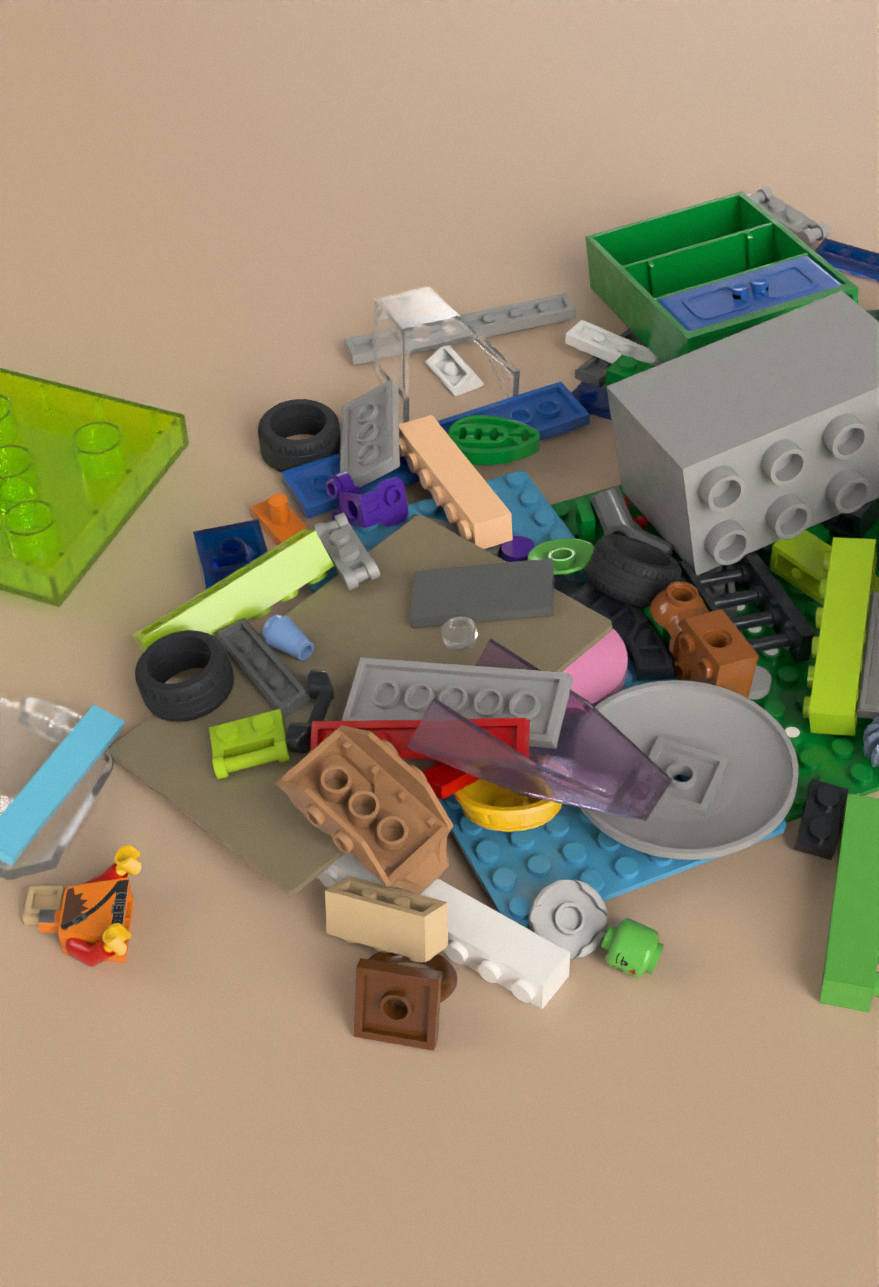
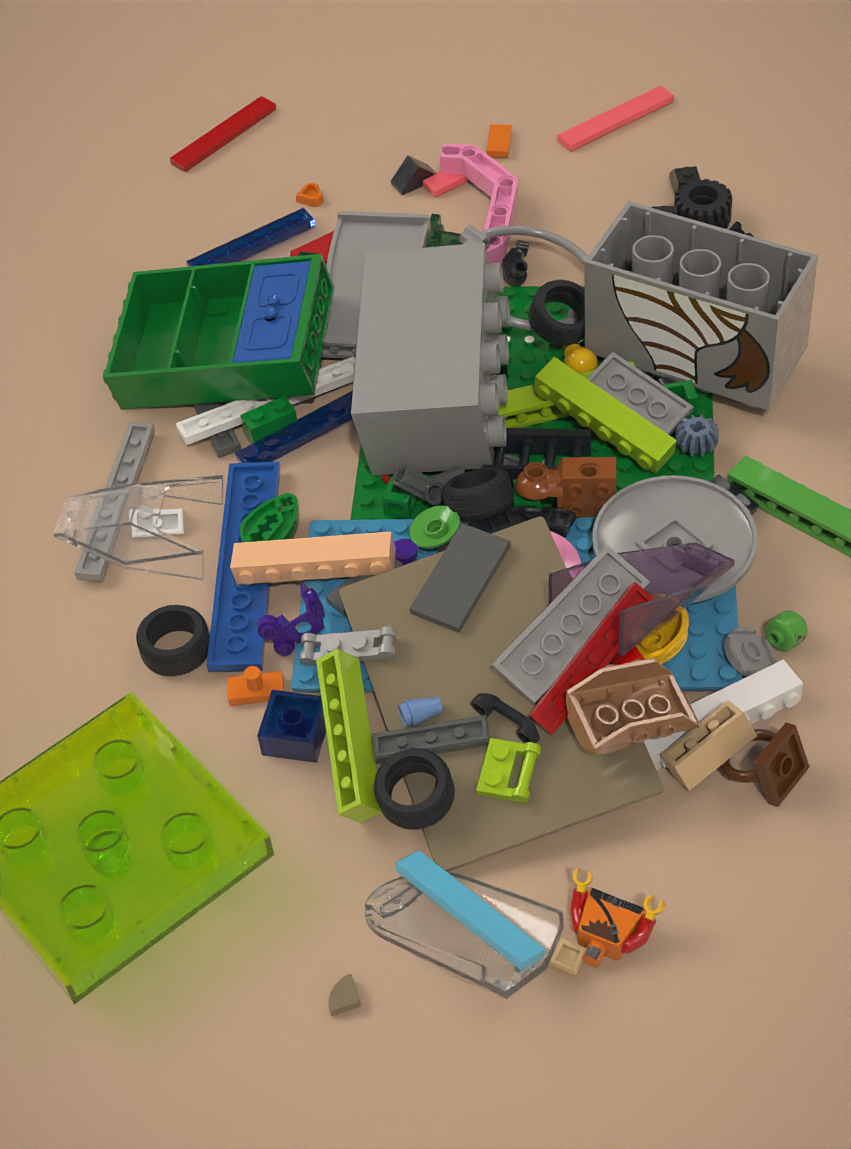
camera: 60 degrees left, 5 degrees up
(370, 434) = (222, 590): light grey tile -> none
(459, 633) = (490, 605): clear tile -> none
(793, 220) = (121, 275): light grey plate -> none

